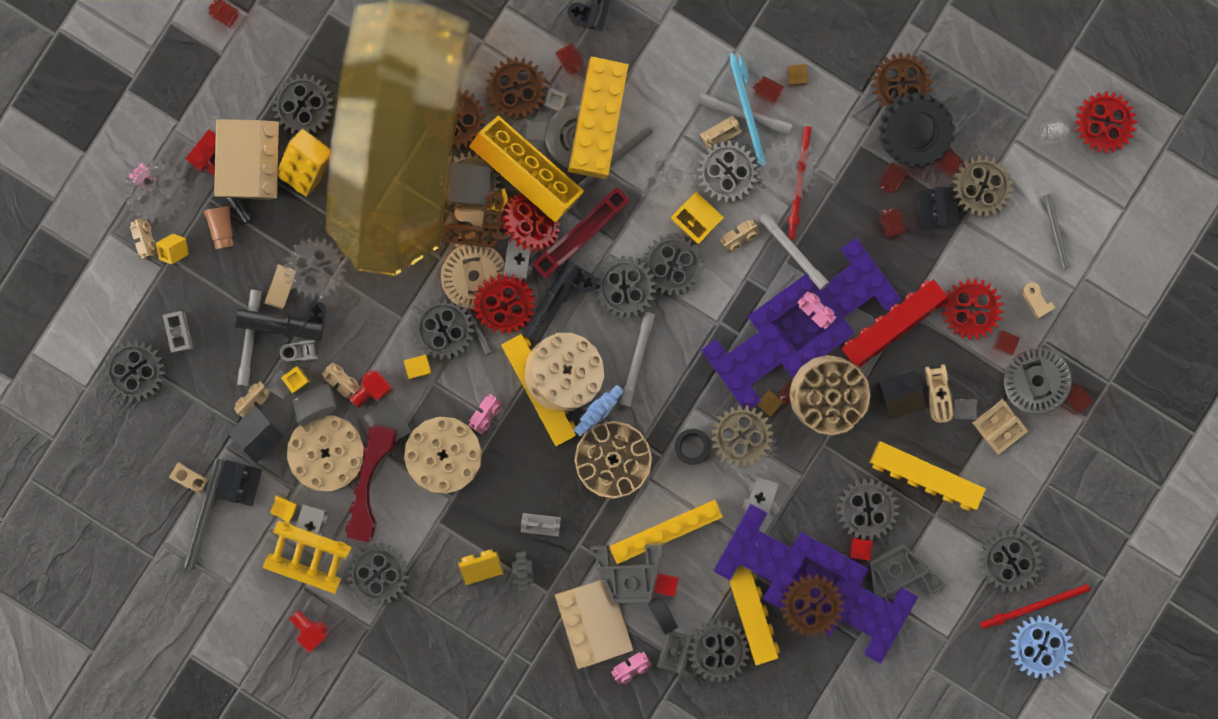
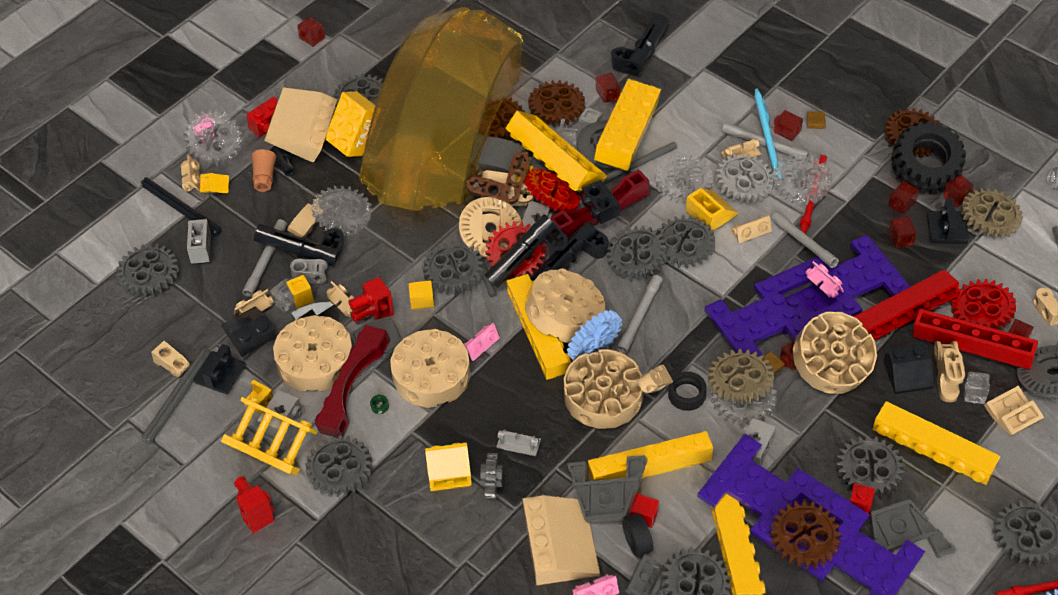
camera: 10 degrees right, 35 degrees down
(144, 281) = (178, 204): none -> black axle
(405, 502) = (375, 401): none -> dark green bush
(533, 292) = (525, 247): none -> black piece
(585, 231) = (600, 201): none -> black brick
(662, 450) = (655, 380): none -> tan leg
(963, 357) = (976, 338): none -> red brick

